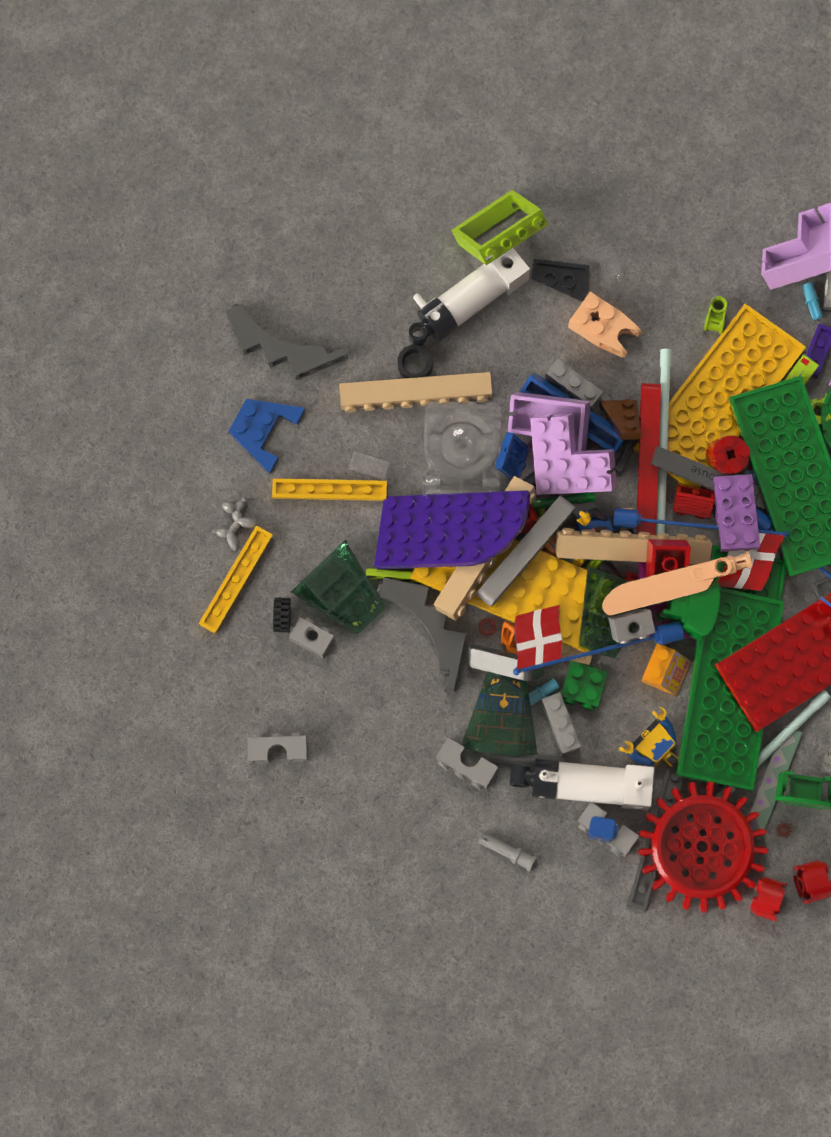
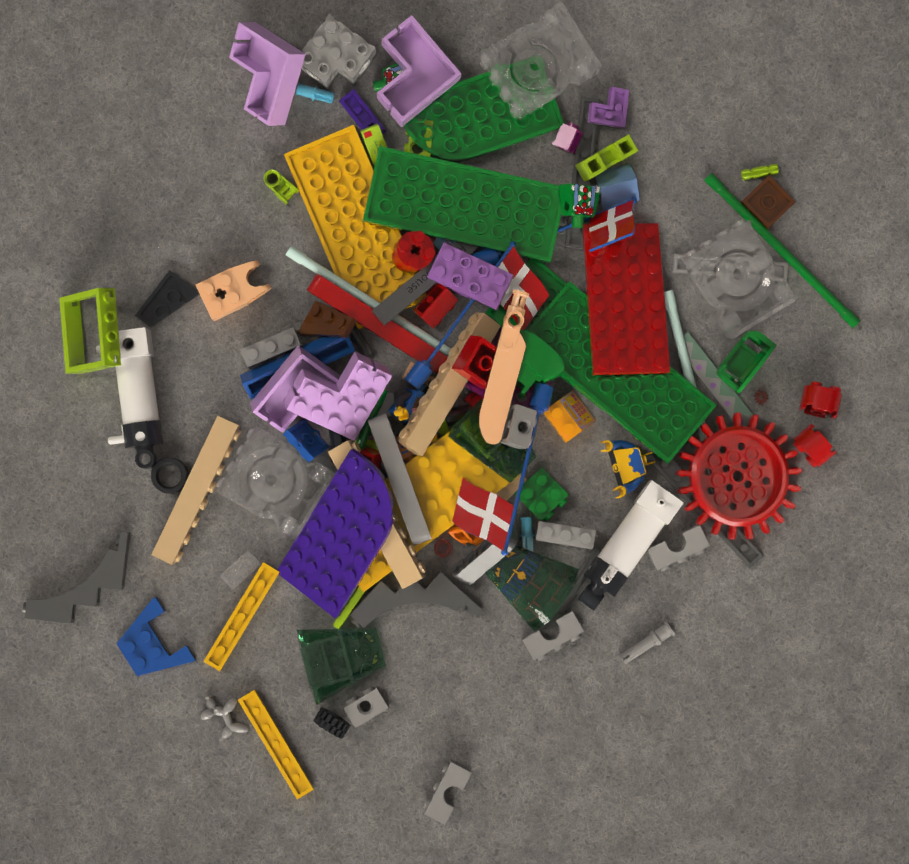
camera: 60 degrees left, 10 degrees up
(602, 829) = (680, 555): blue brick -> none

